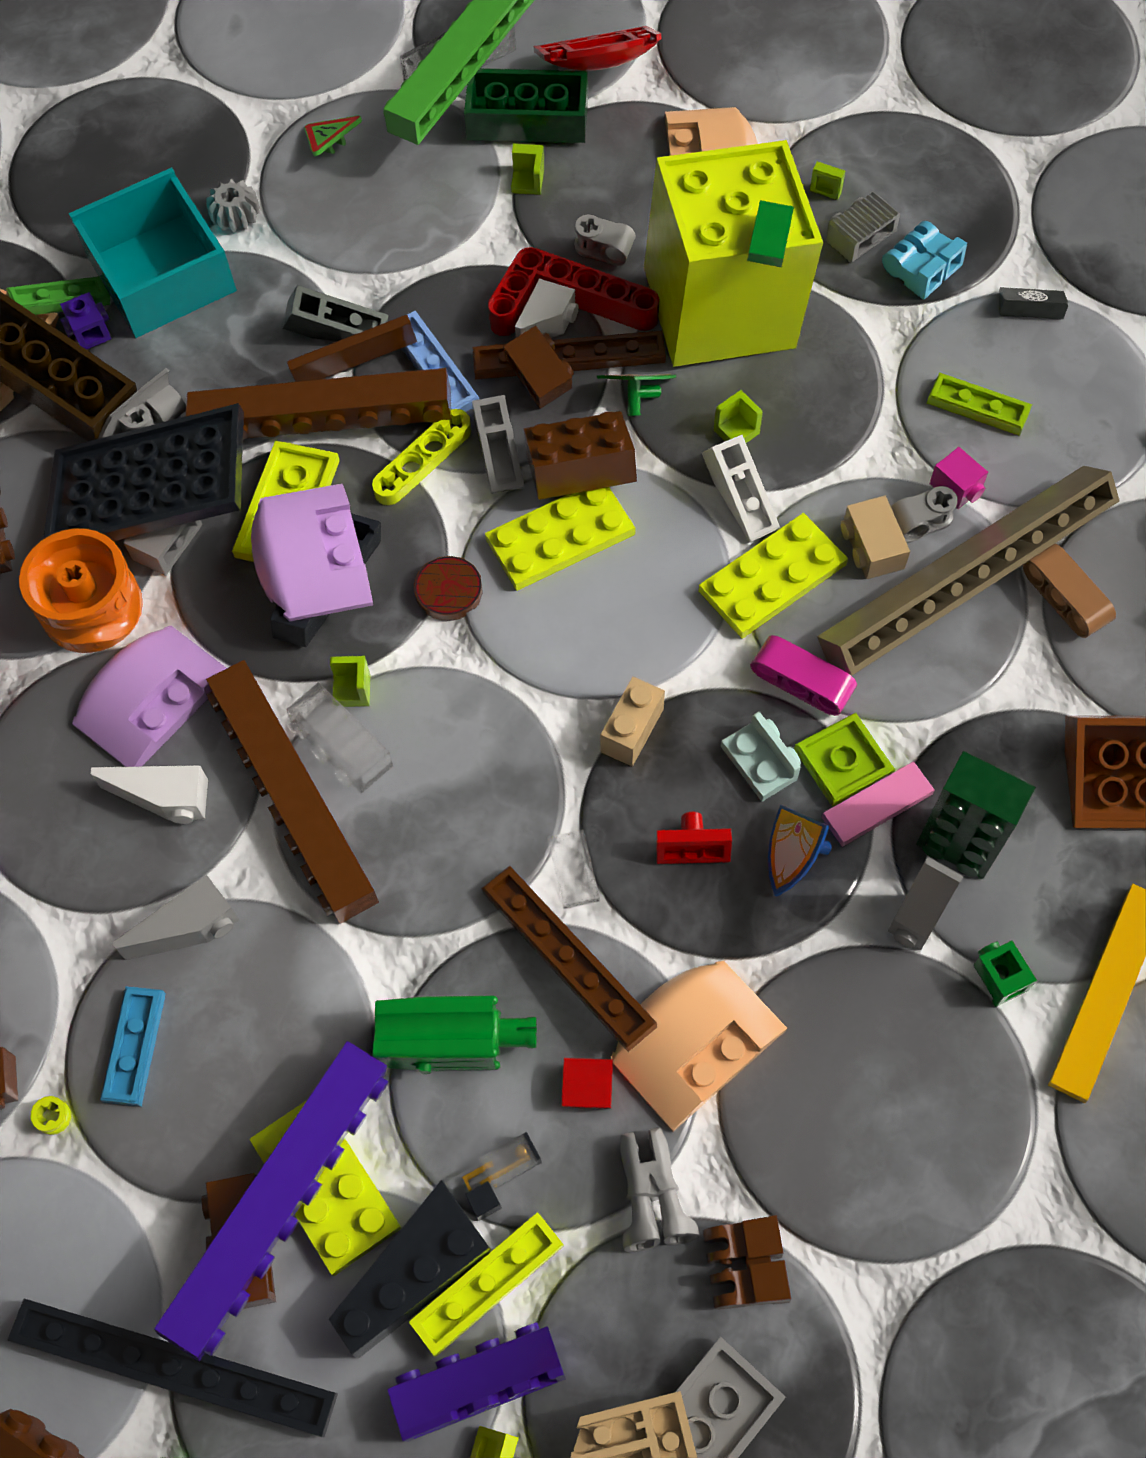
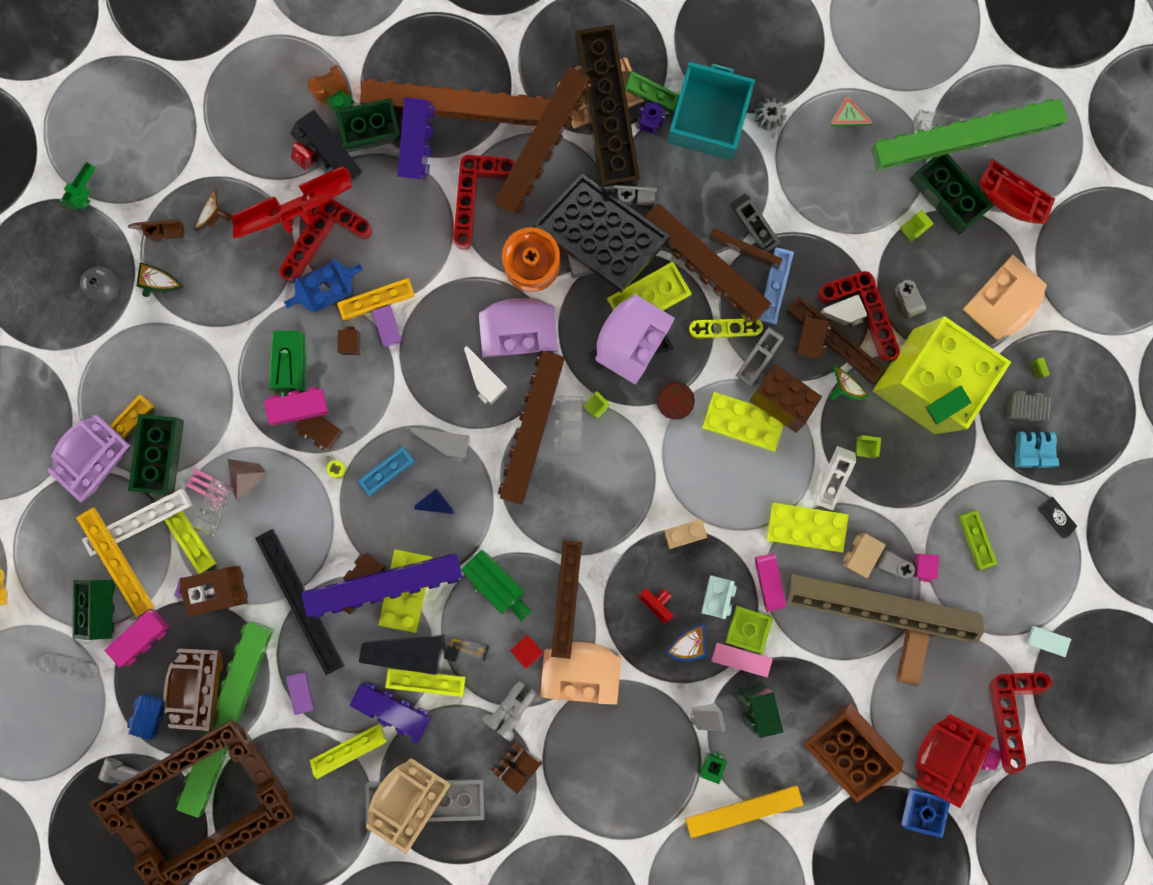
camera: 40 degrees right, 20 degrees up
(248, 1015) = (435, 503): none -> clear blue slope

